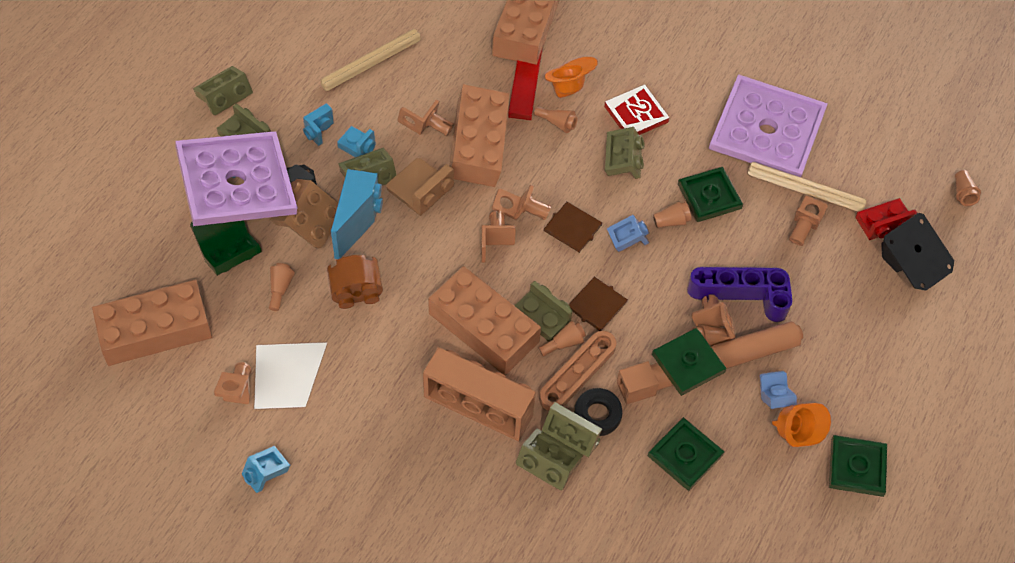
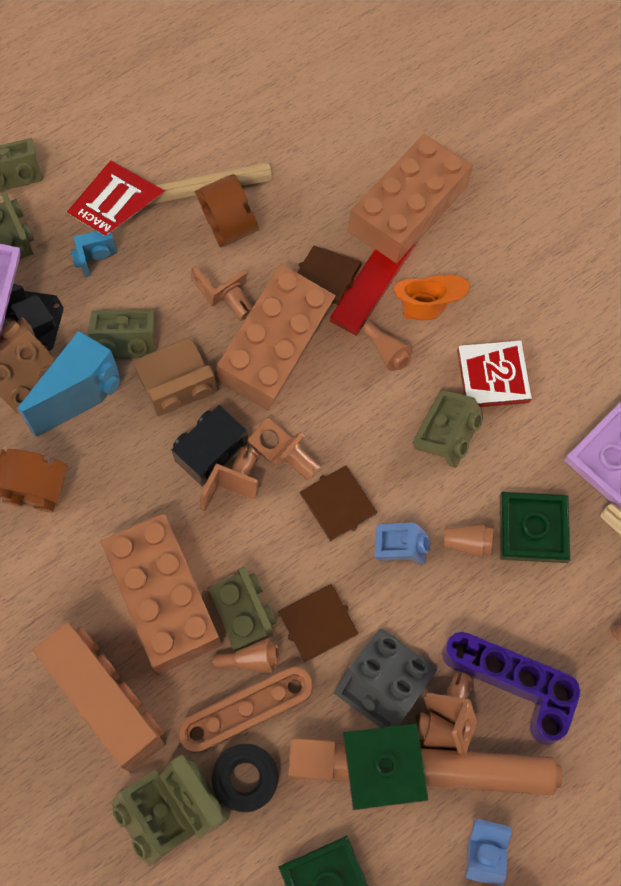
camera: 25 degrees right, 10 degrees up
(316, 85) = (113, 198): none -> red sticker
(357, 142) = (129, 290): dark azure bracket -> none
(404, 65) = (227, 210): none -> dark orange brick
(468, 216) = (209, 443): none -> black brick
(494, 80) = (329, 271): none -> reddish brown piece
(659, 319) = (385, 680): none -> dark grey bracket

